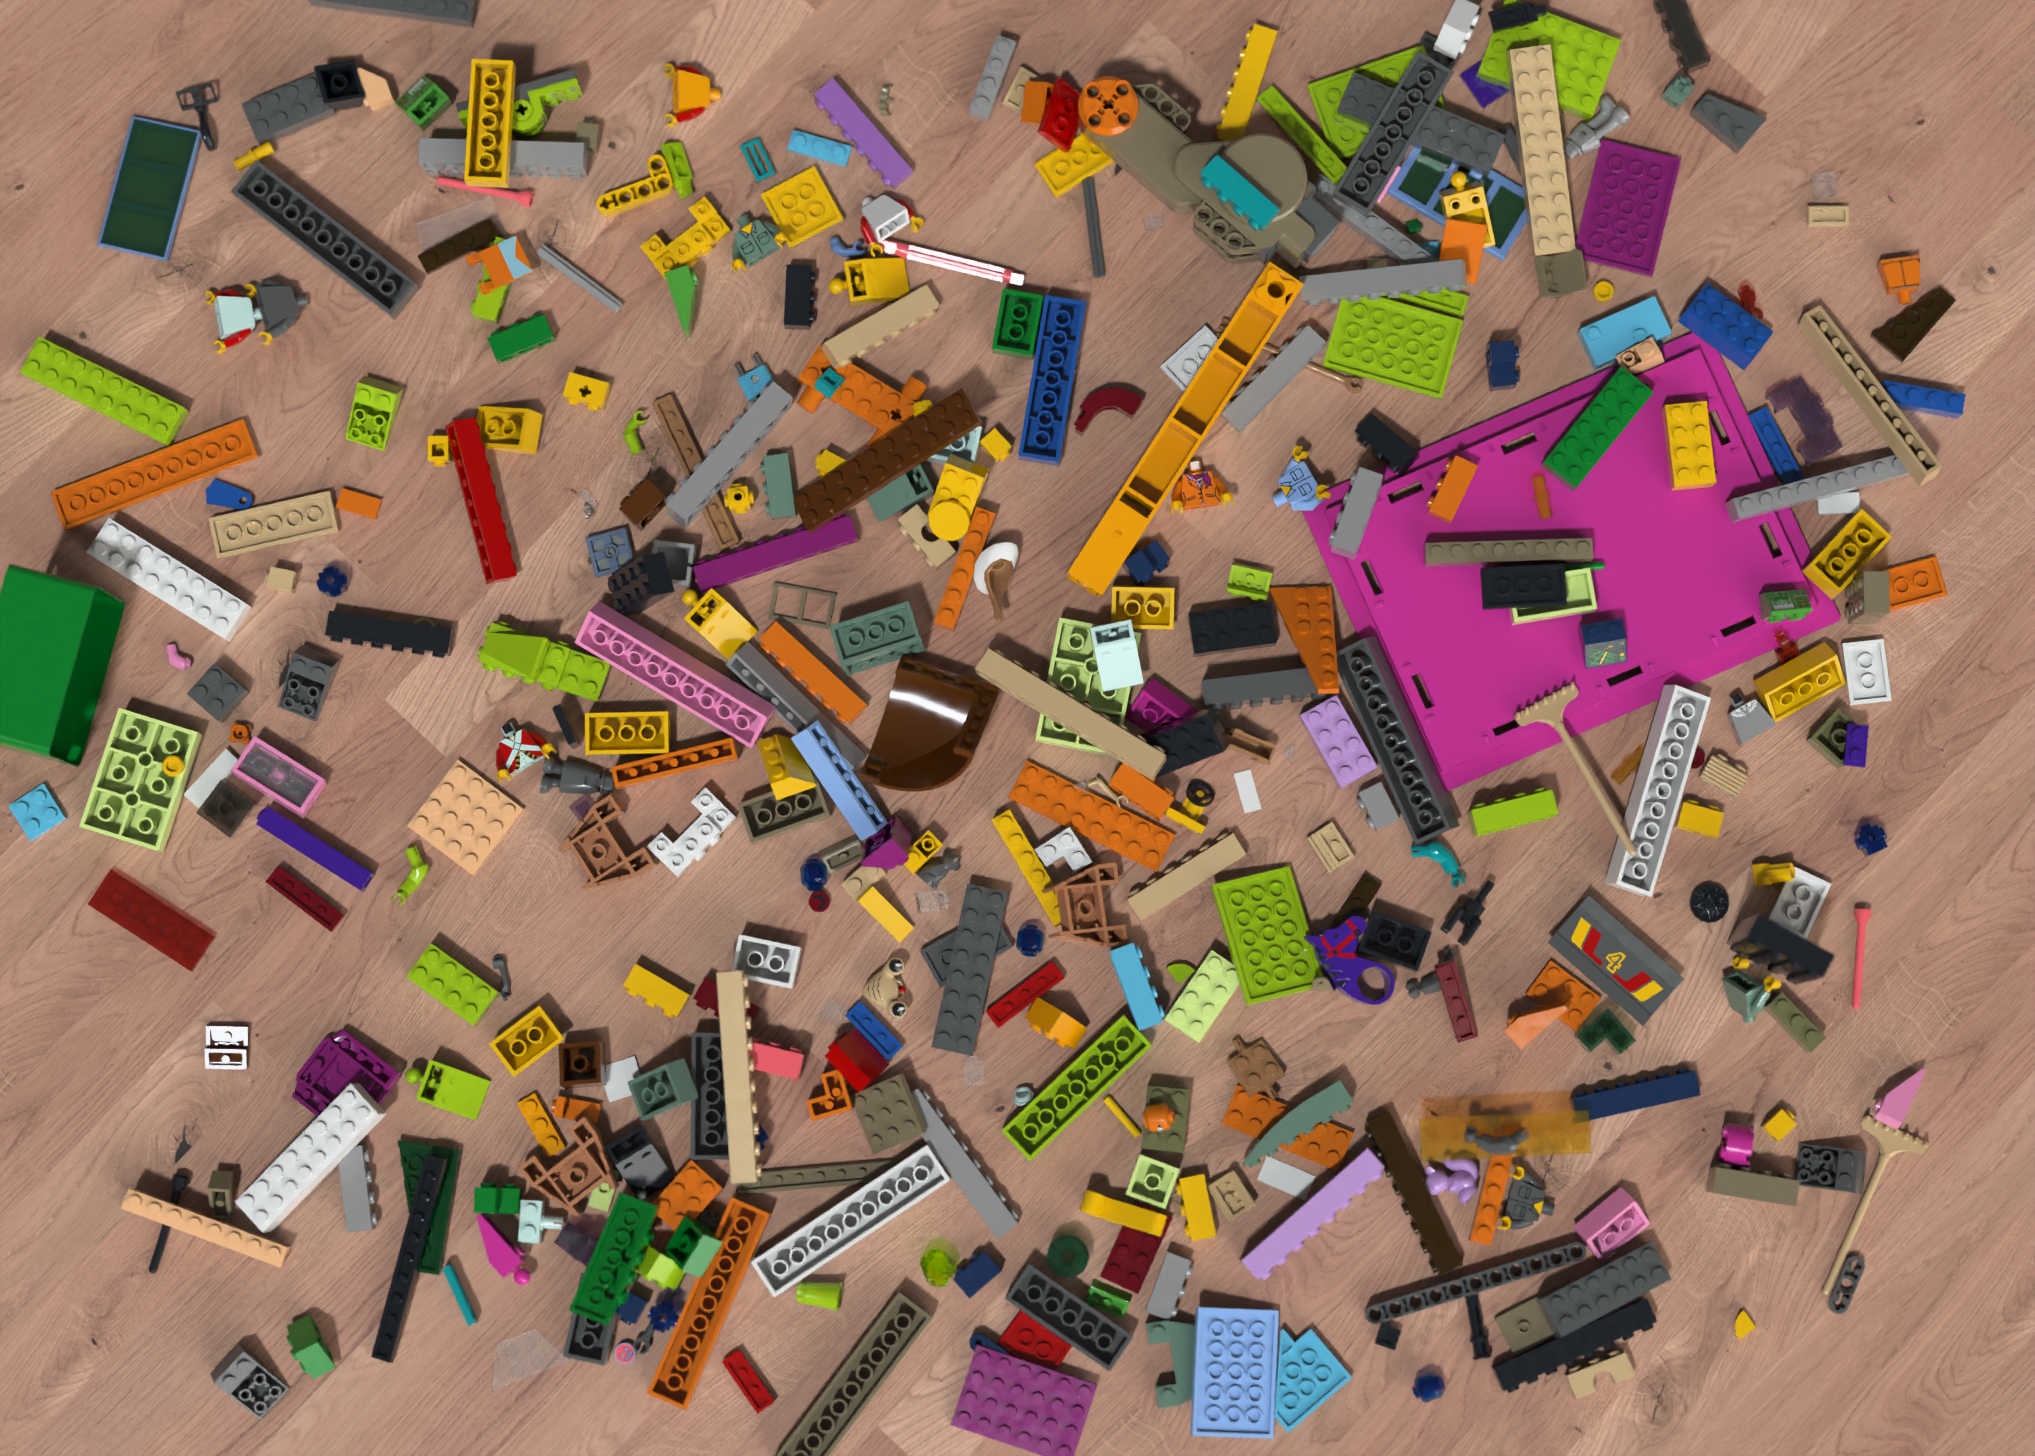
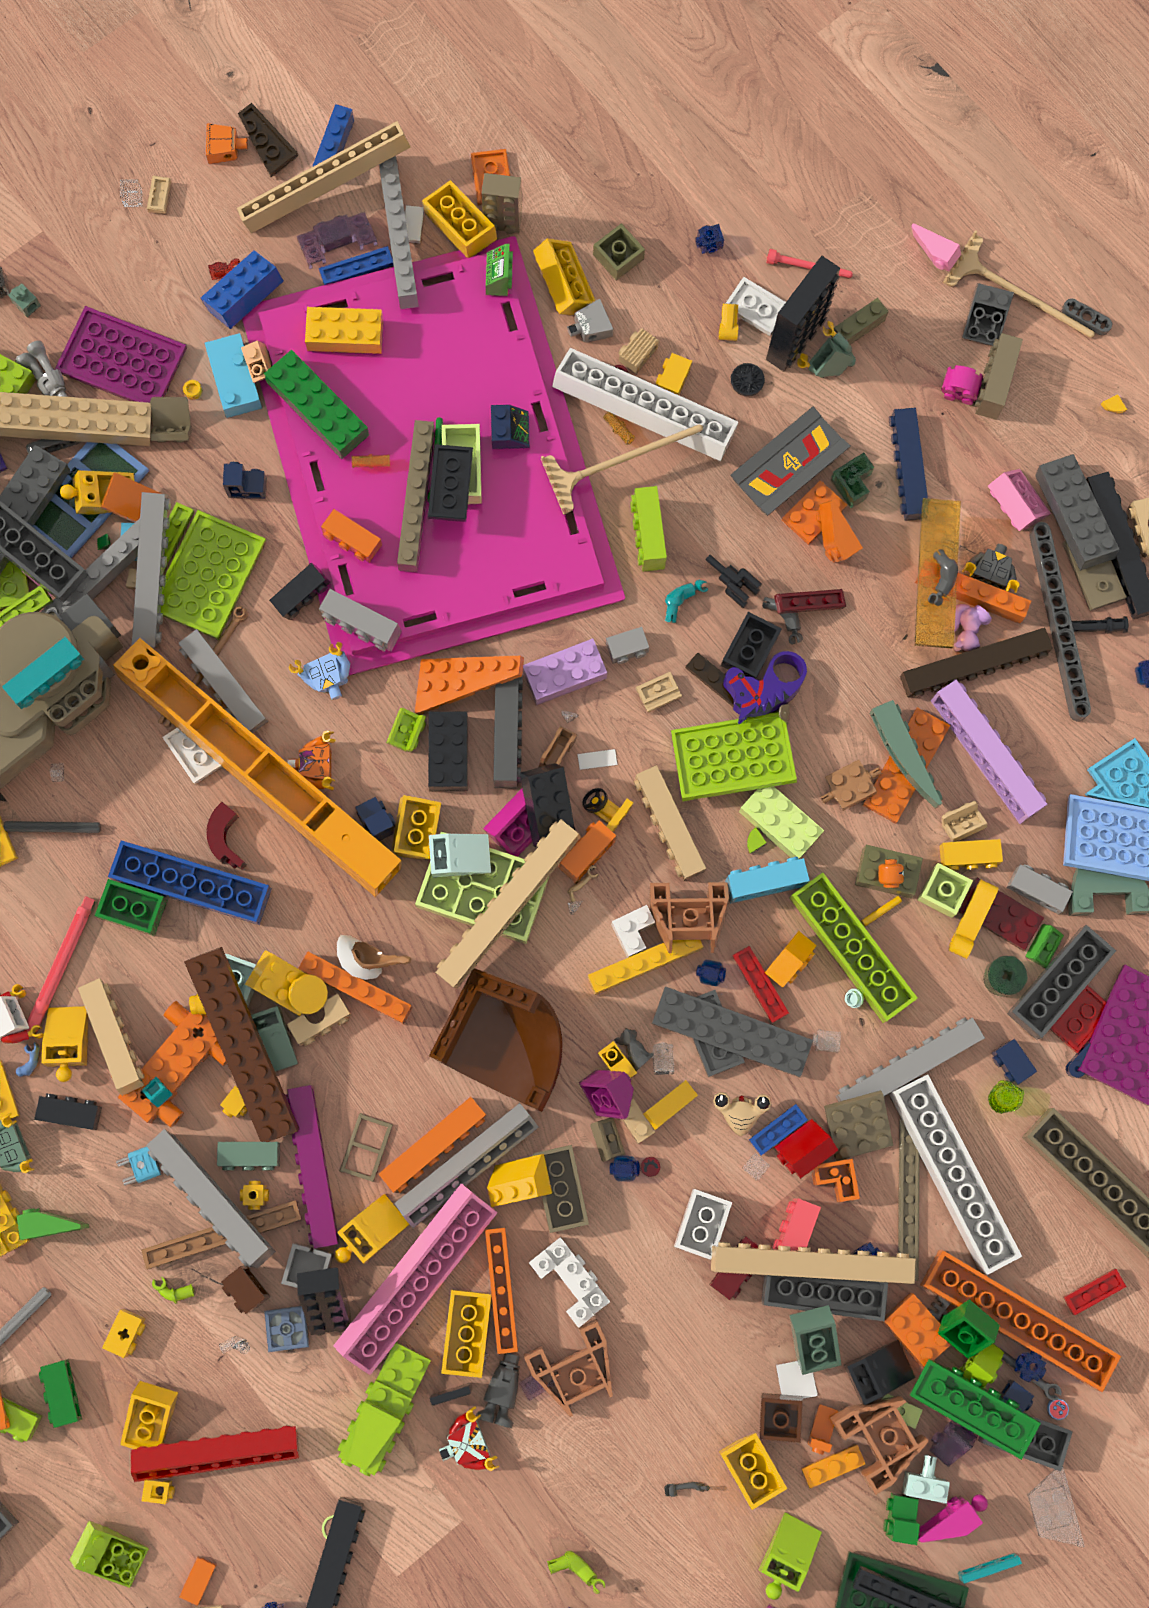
camera: 90 degrees left, 5 degrees down
(453, 984) = (688, 1539): lime brick -> none
(465, 817) = (525, 1507): light nougat plate -> none
(656, 991) = (717, 1335): yellow brick -> none
(820, 1294) = (1020, 1212): lime plant -> none
(839, 780) = (539, 1131): light blue brick -> none
(877, 638) = (409, 1077): sand green brick -> none
(996, 446) = (243, 943): yellow brick -> none
(1091, 816) = (602, 902): orange plate -> none
(1286, 1177) = (950, 772): white sticker -> none
(1387, 1337) = (1101, 702): black plate -> none
(1395, 740) = (572, 619): dark grey brick -> none
(1727, 121) = (59, 263): dark grey wedge -> none
(1779, 1124) = (946, 349): yellow brick -> none
(1786, 650) = (535, 282): clear red plate -> none
(1855, 745) = (628, 234): dark purple plate -> none
(1866, 672) = (563, 222): white plate -> none

